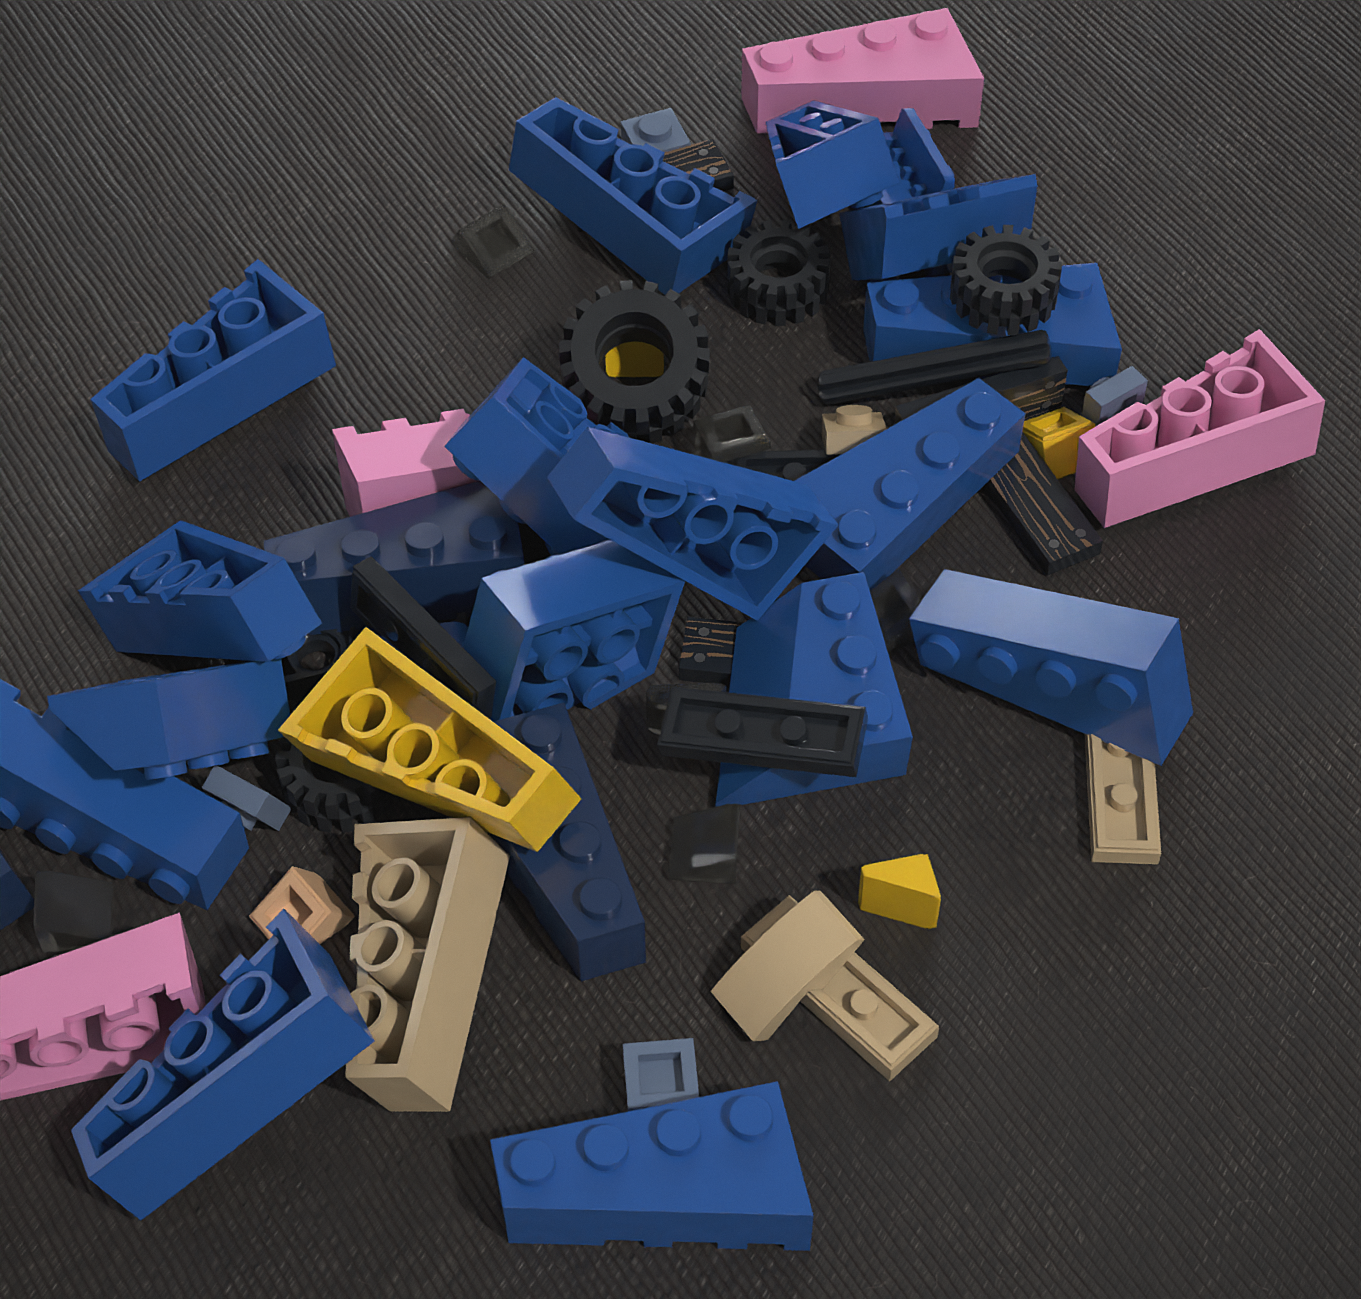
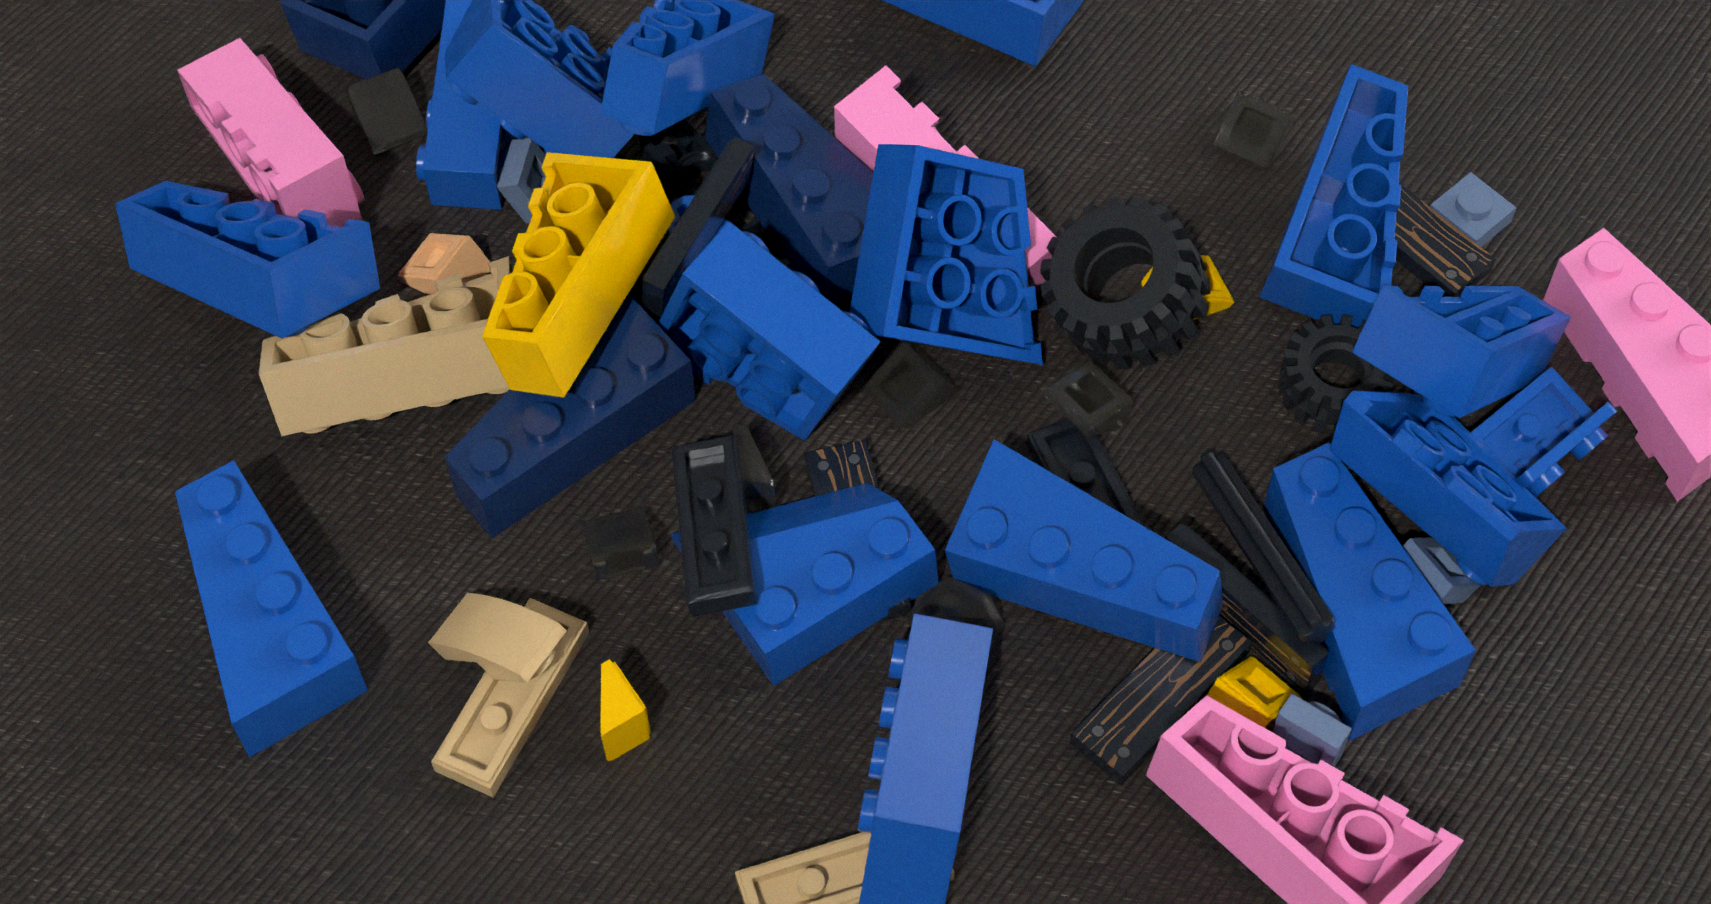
camera: 70 degrees right, 5 degrees up
(659, 1072) = (362, 581): sand blue plate -> none
(695, 516) = (891, 365): blue wedge -> none
(850, 427) = (1154, 502): tan plate -> none
(1006, 256) = (1380, 524): black tyre -> none

